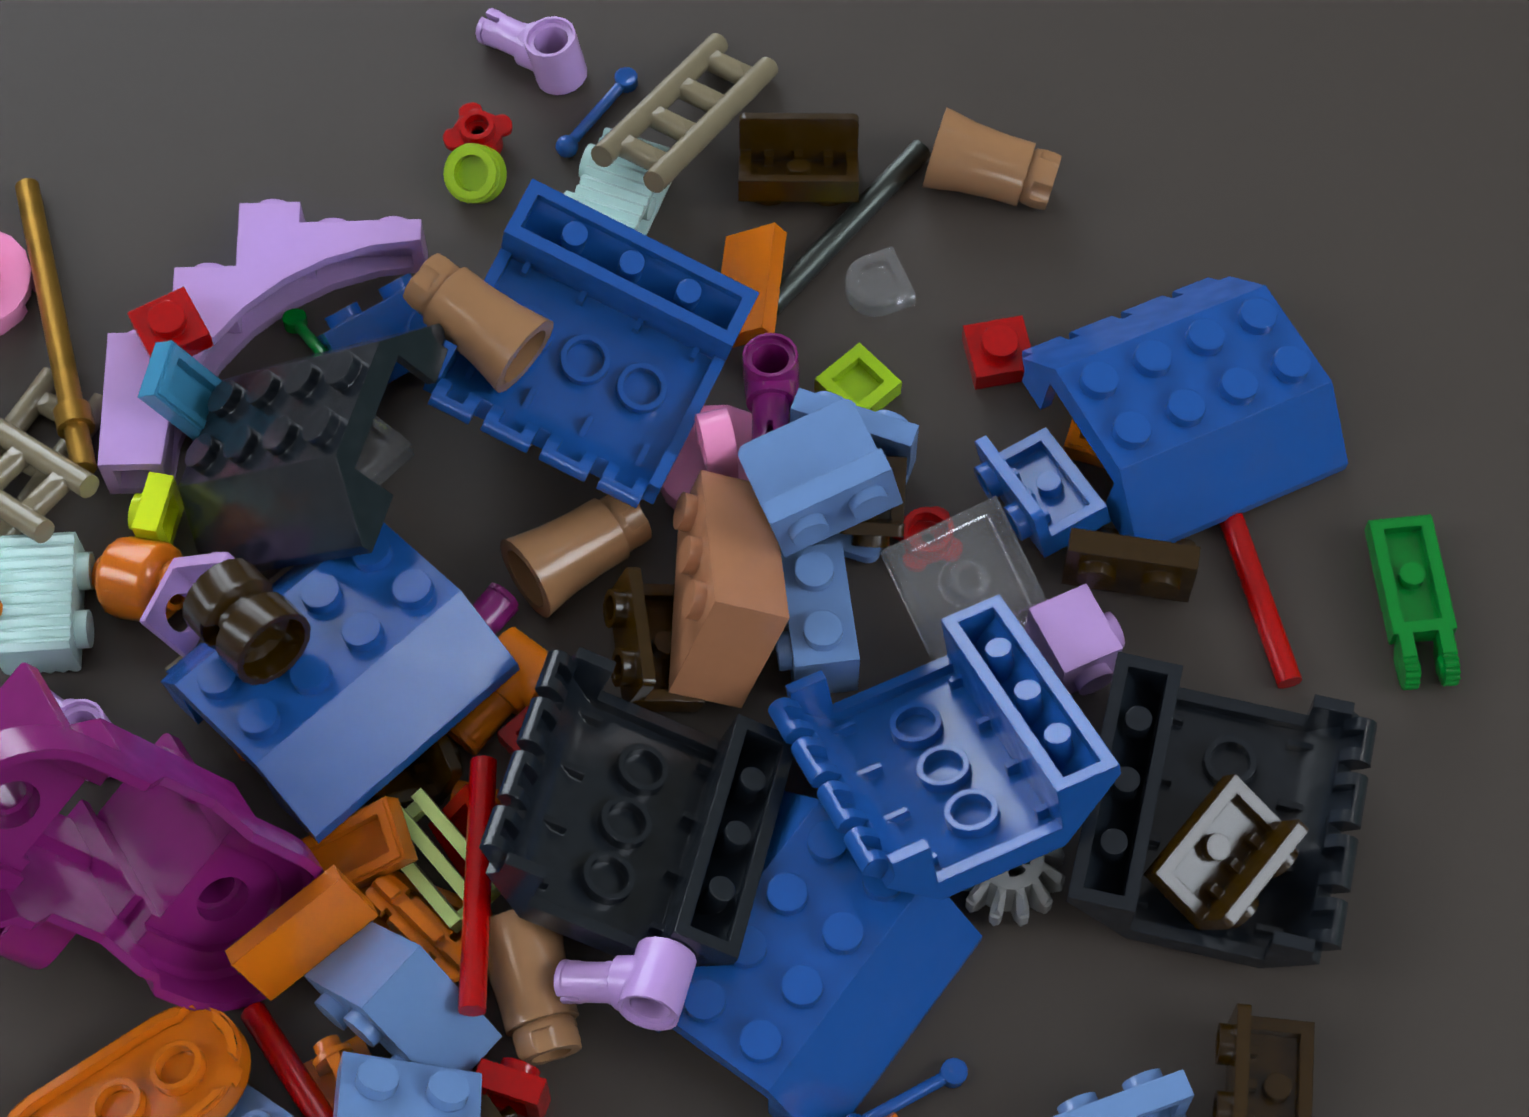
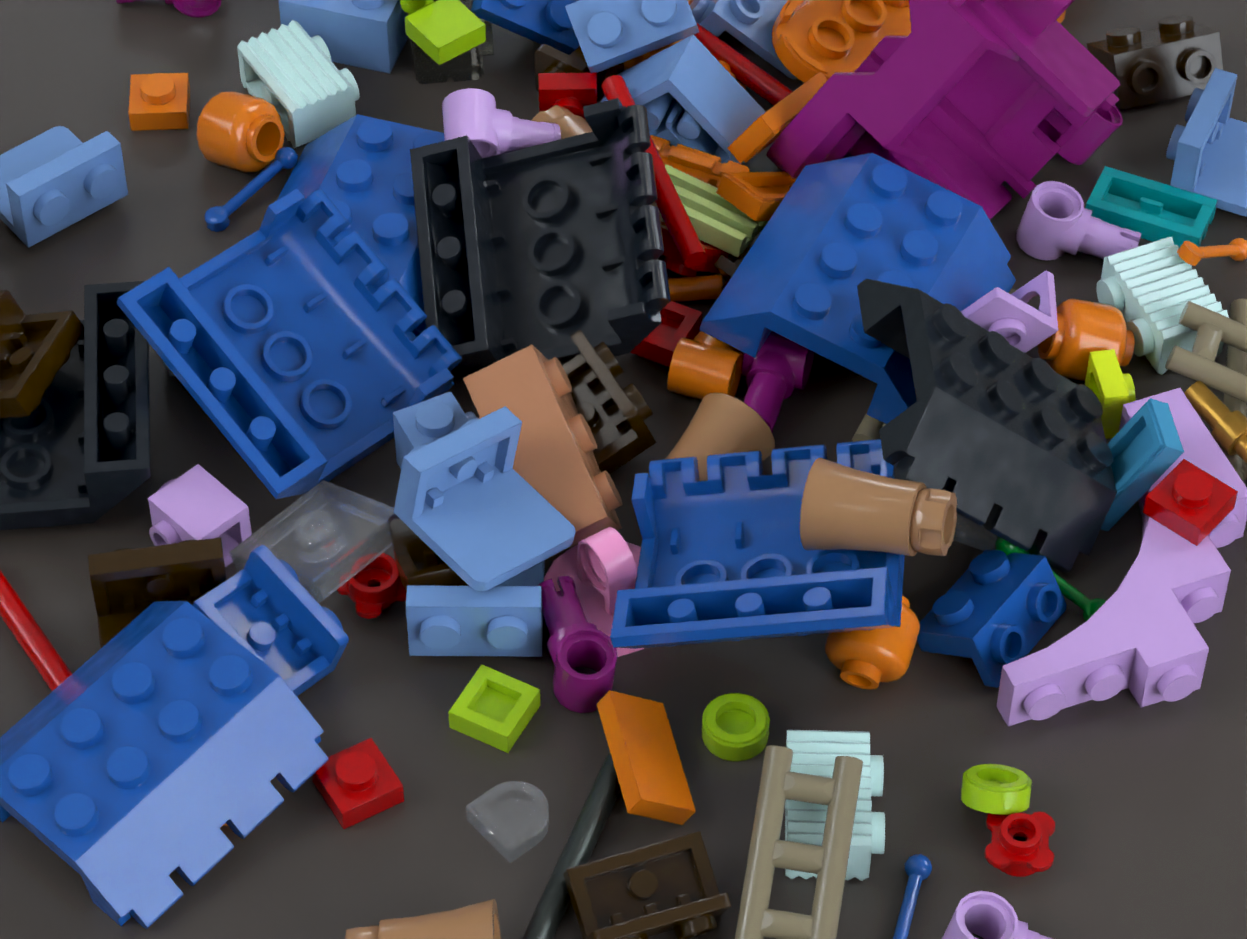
camera: 160 degrees right, 15 degrees down
(246, 622) = (933, 207): dark brown wheel -> none

